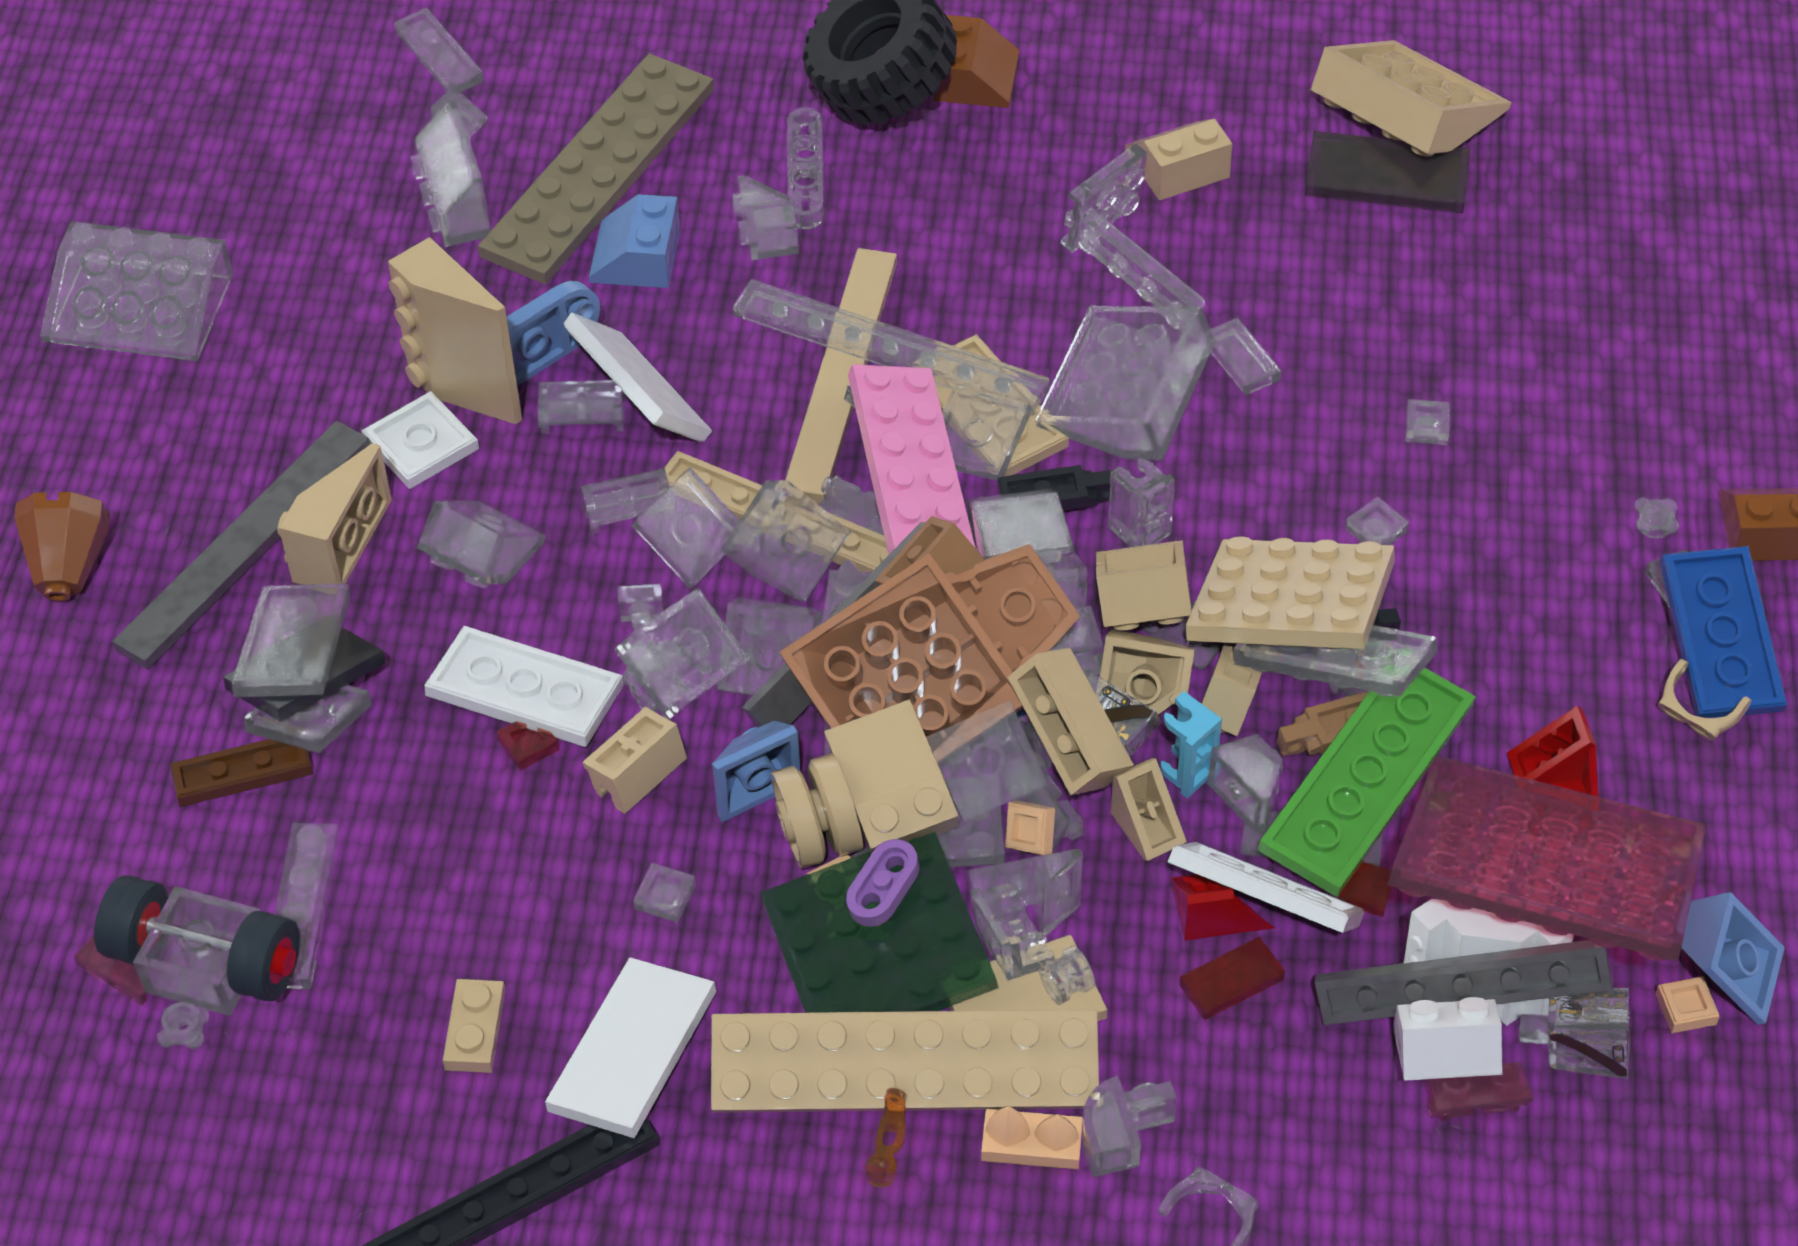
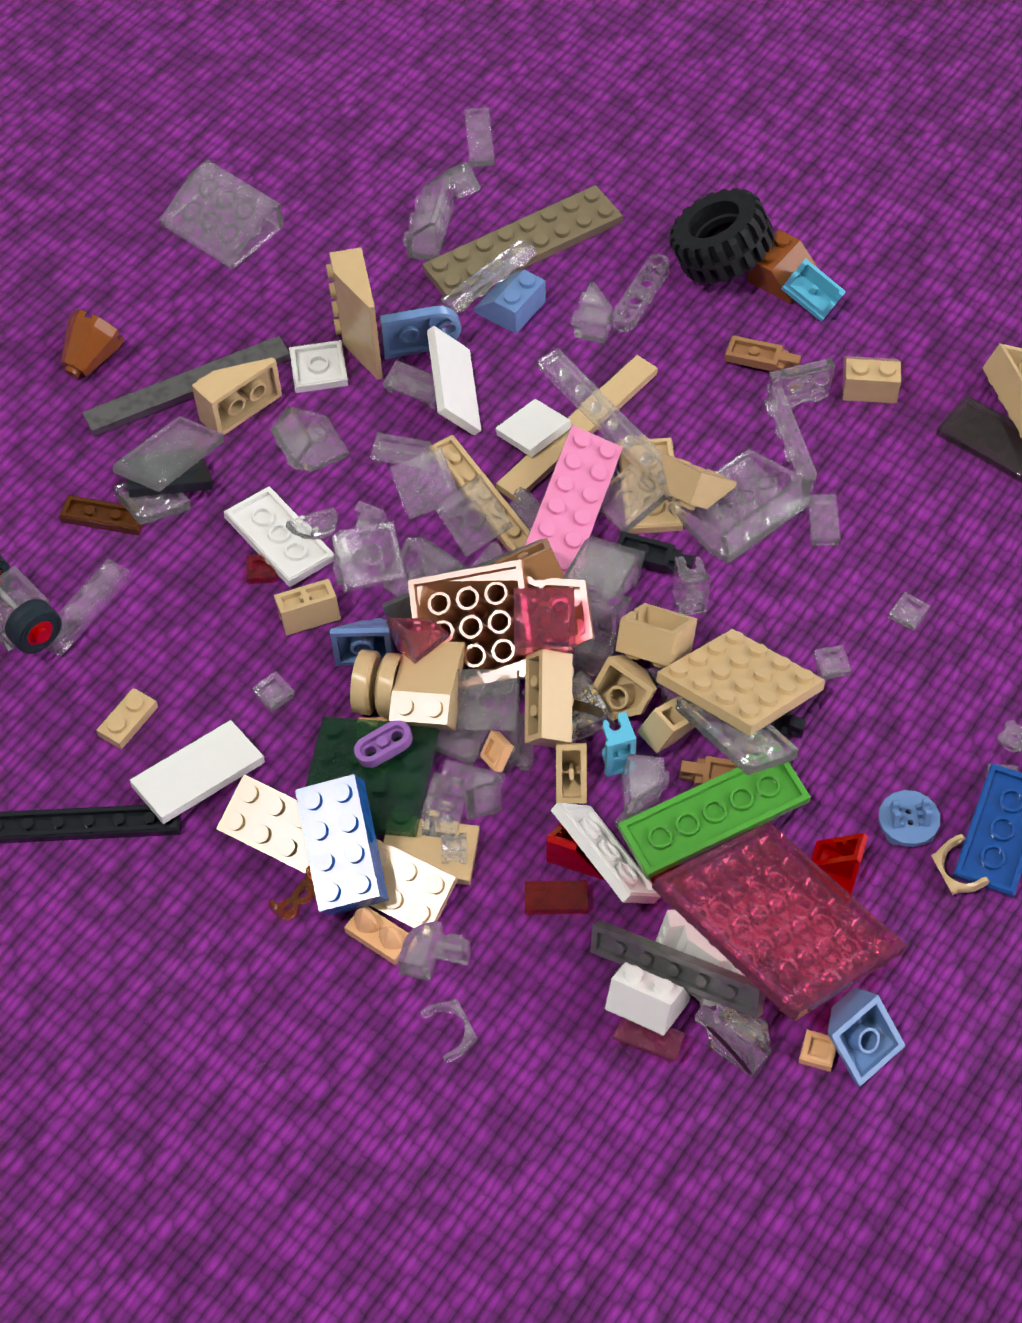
camera: 30 degrees right, 5 degrees up
(569, 648) = (314, 525): none -> clear tile
(589, 222) = (489, 275): none -> clear plate
(784, 396) = (533, 427): none -> white tile
(843, 720) = (416, 636): none -> clear pink slope
(923, 1037) = (341, 845): none -> brick
(1012, 617) = (544, 620): none -> clear pink brick
(1021, 184) = (760, 354): none -> medium nougat hinge
(1037, 75) = (813, 290): none -> medium azure hinge
(1060, 373) = (694, 484): none -> tan slope
(1591, 658) = (895, 820): none -> medium blue plate

